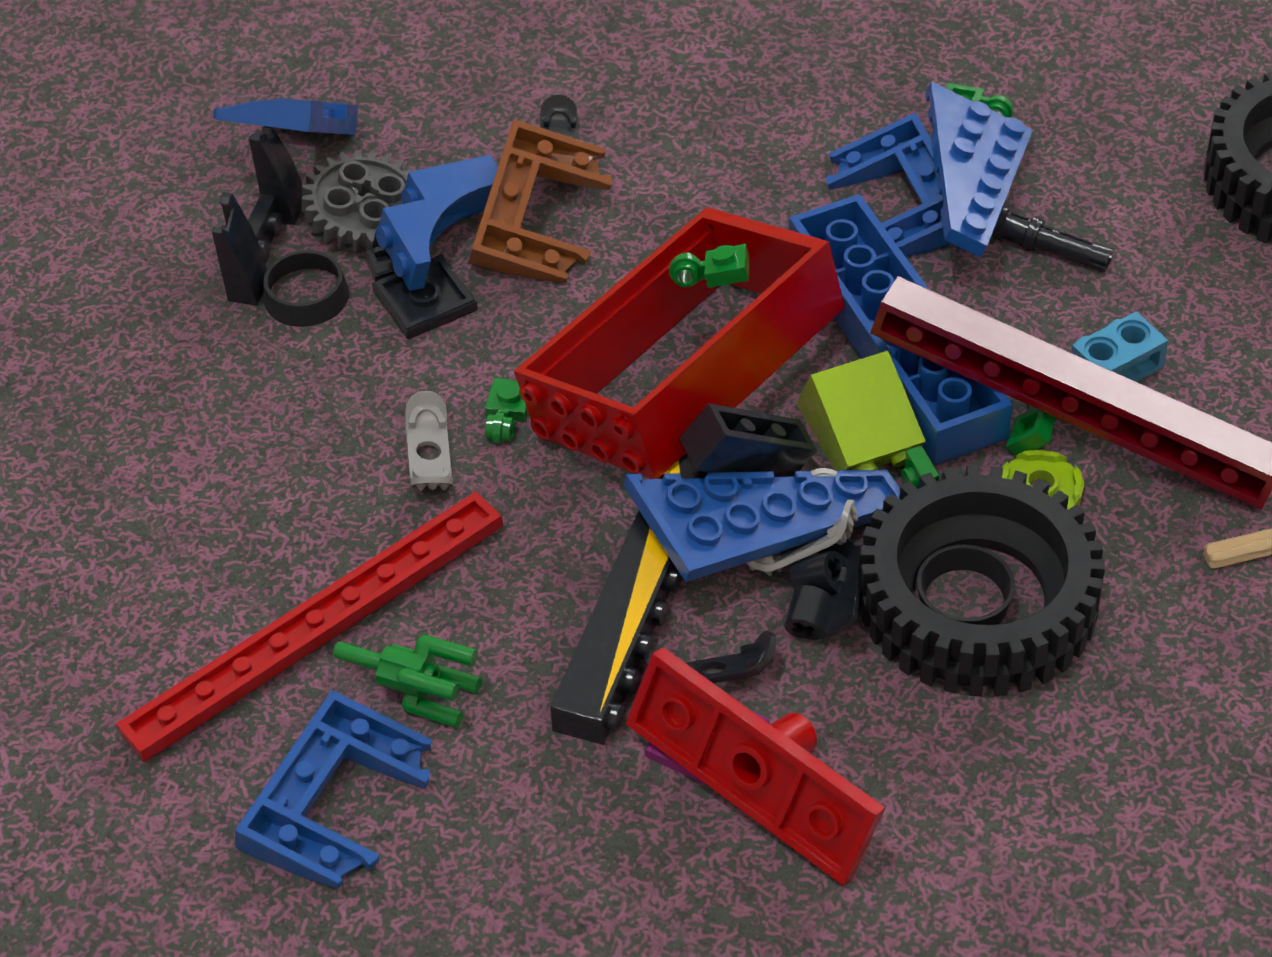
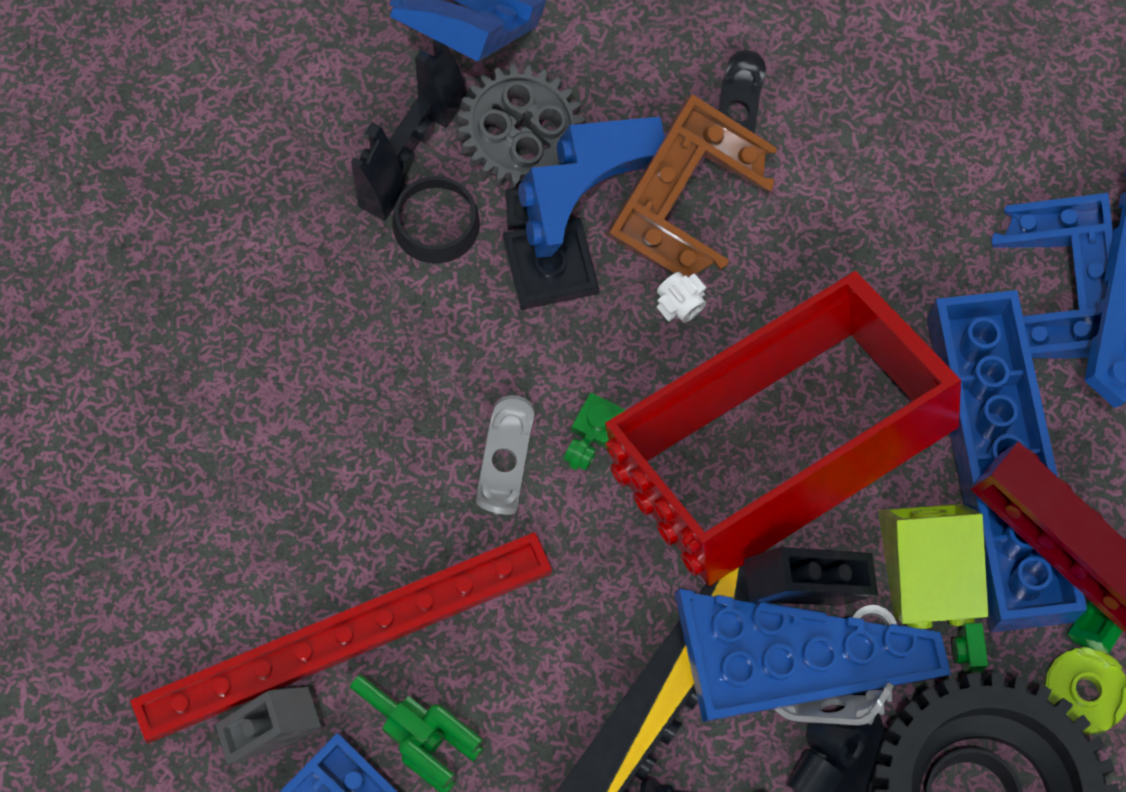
camera: 10 degrees right, 20 degrees up
(260, 707) = (268, 724): none -> dark grey slope
(555, 285) = (681, 297): none -> white gear
(721, 267) = (846, 371): green plate -> none

